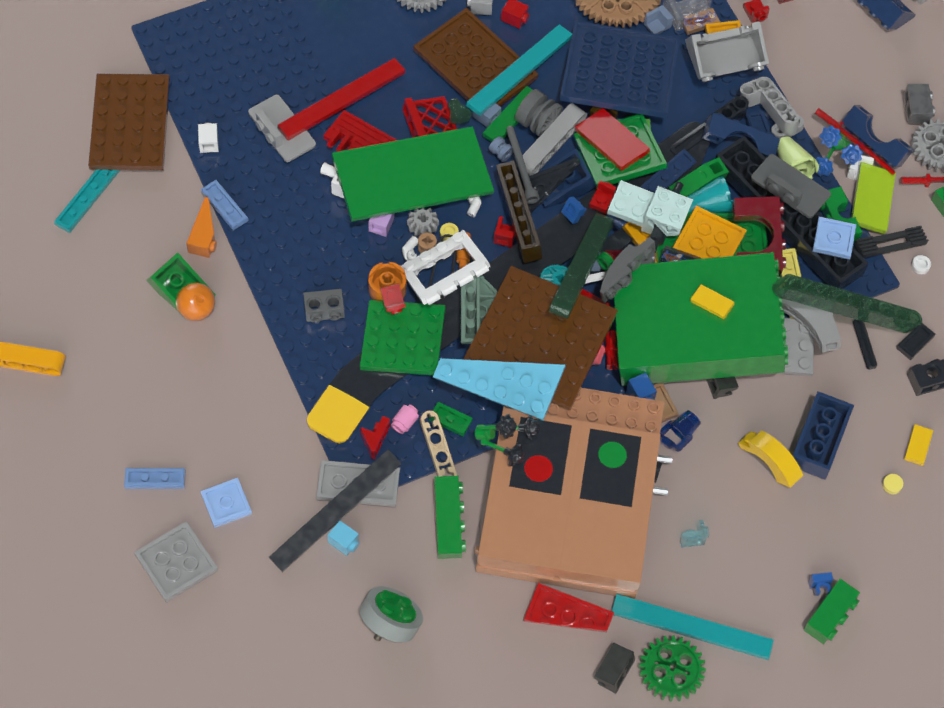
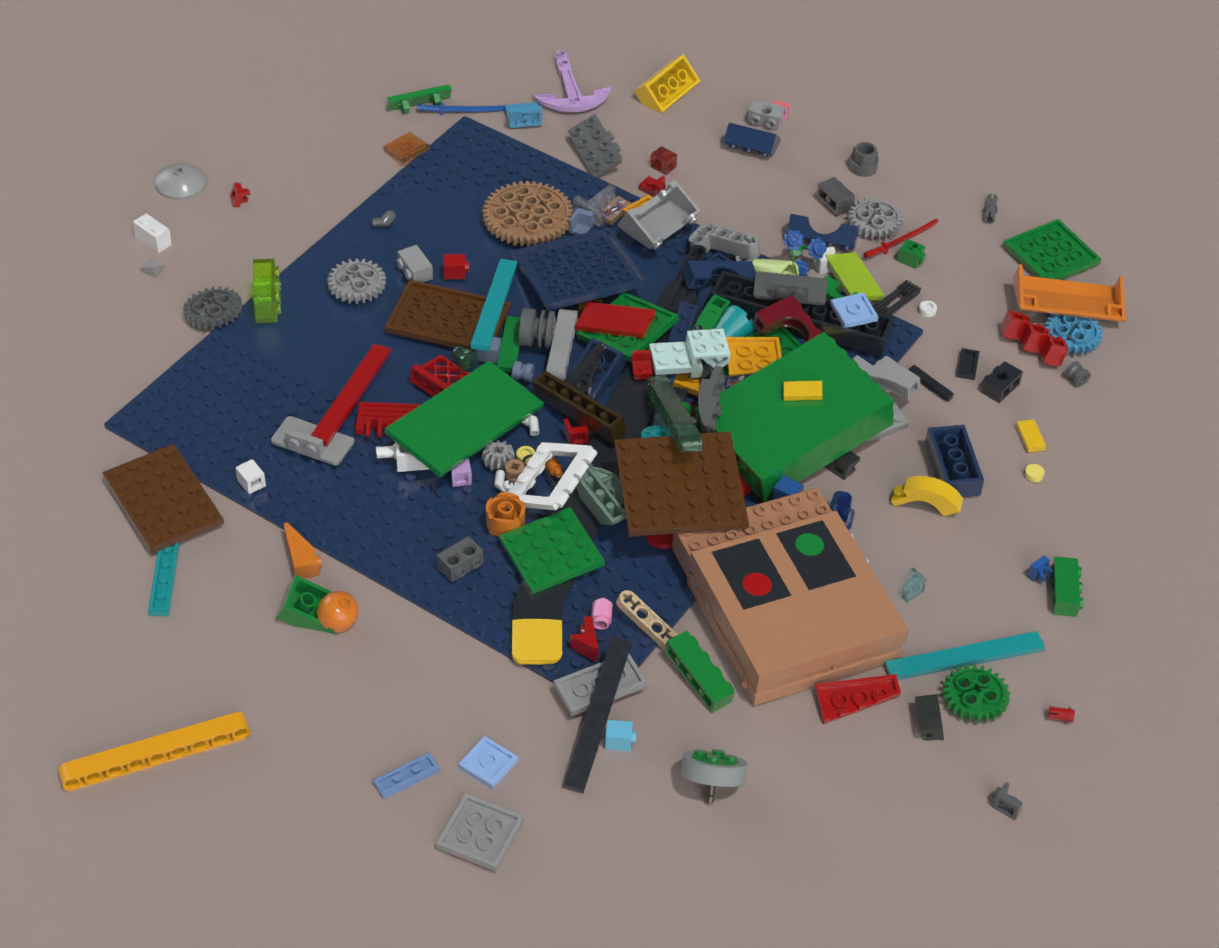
camera: 30 degrees left, 15 degrees down
(224, 205) = (305, 524): medium blue tile -> none
(392, 298) = (523, 519): red bracket -> none
(452, 419) = (649, 593): green plate -> none
(507, 428) = (714, 554): black plant -> none
(512, 384) = (688, 527): medium azure wing -> none
(530, 193) = (541, 364): dark grey piece -> none
(573, 210) = (624, 385): blue tile -> none
(838, 125) = (772, 235): red sword -> none
(846, 303) = (903, 349): clear green beam -> none

